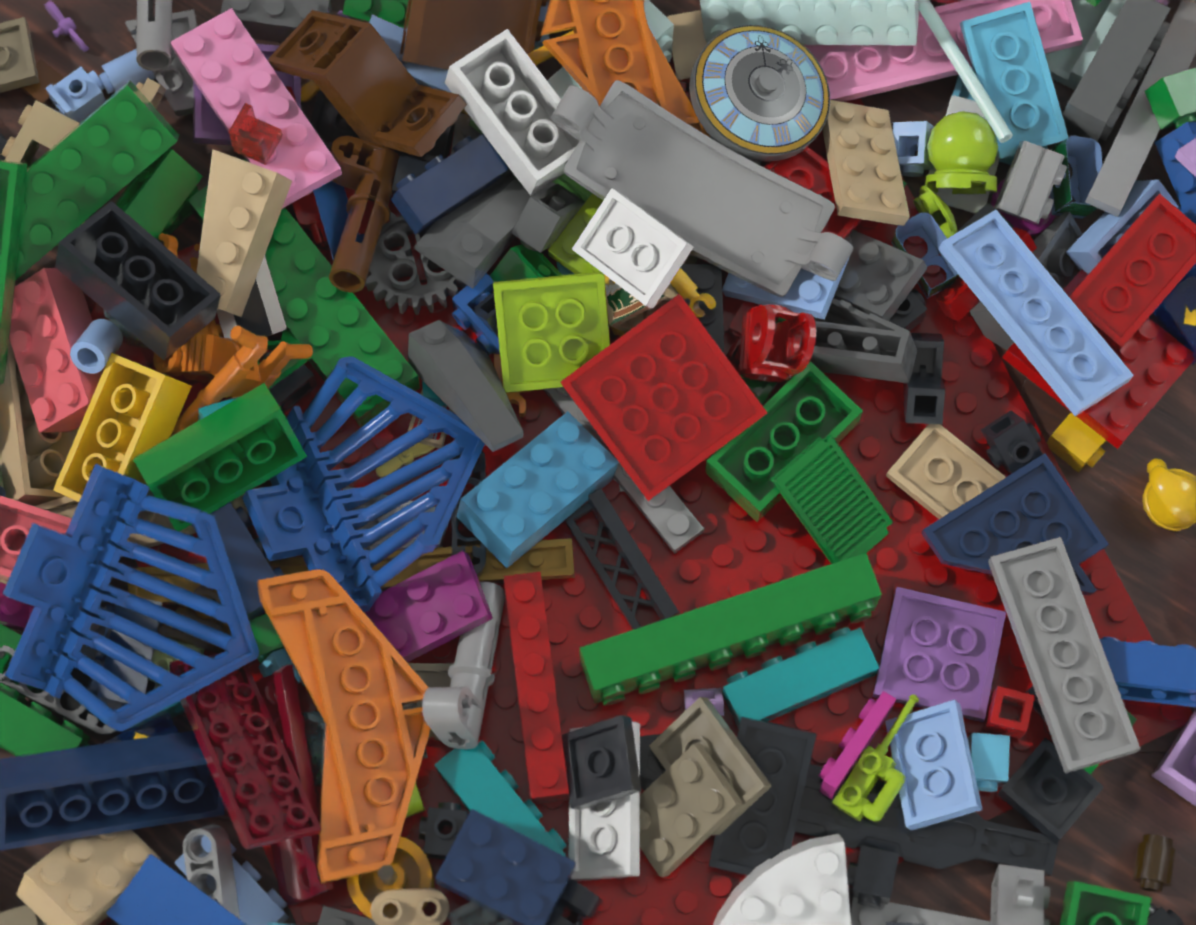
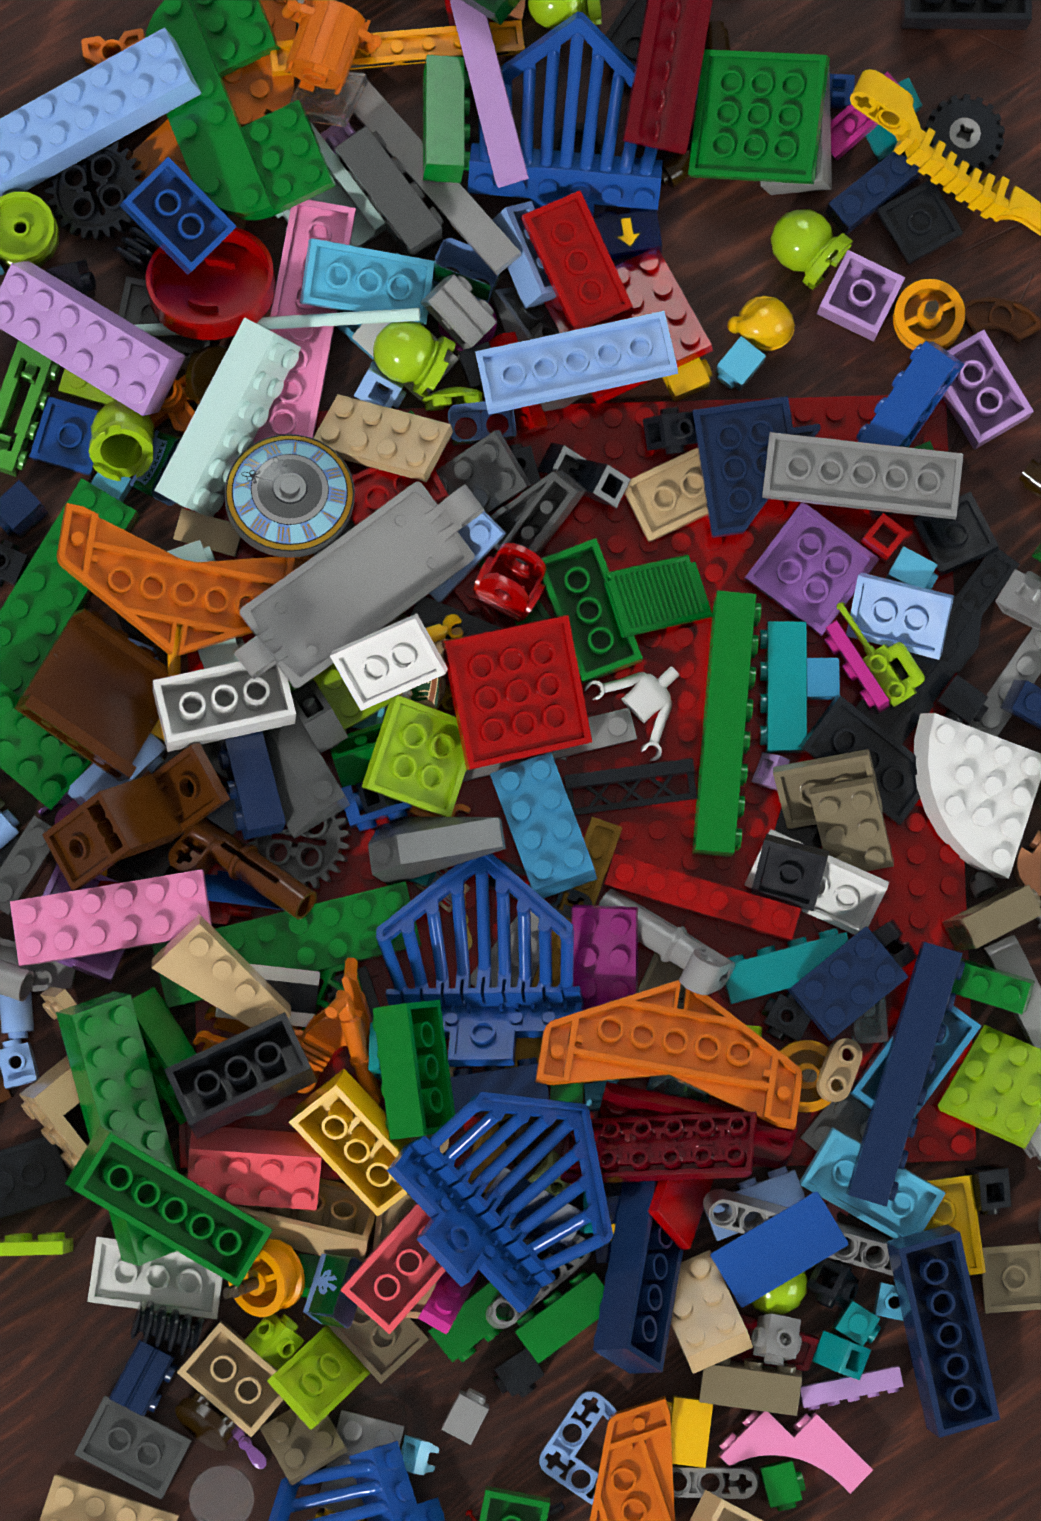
camera: 70 degrees left, 10 degrees up
(95, 345) = (274, 1132): light blue brick -> none
(187, 799) = (678, 1208): none -> red tile
(254, 137) = (148, 928): clear red panel -> none
(719, 540) = (644, 700): none -> white piece
(826, 712) = (822, 678): none -> dark azure panel
(1118, 489) = (739, 364): none -> medium azure brick

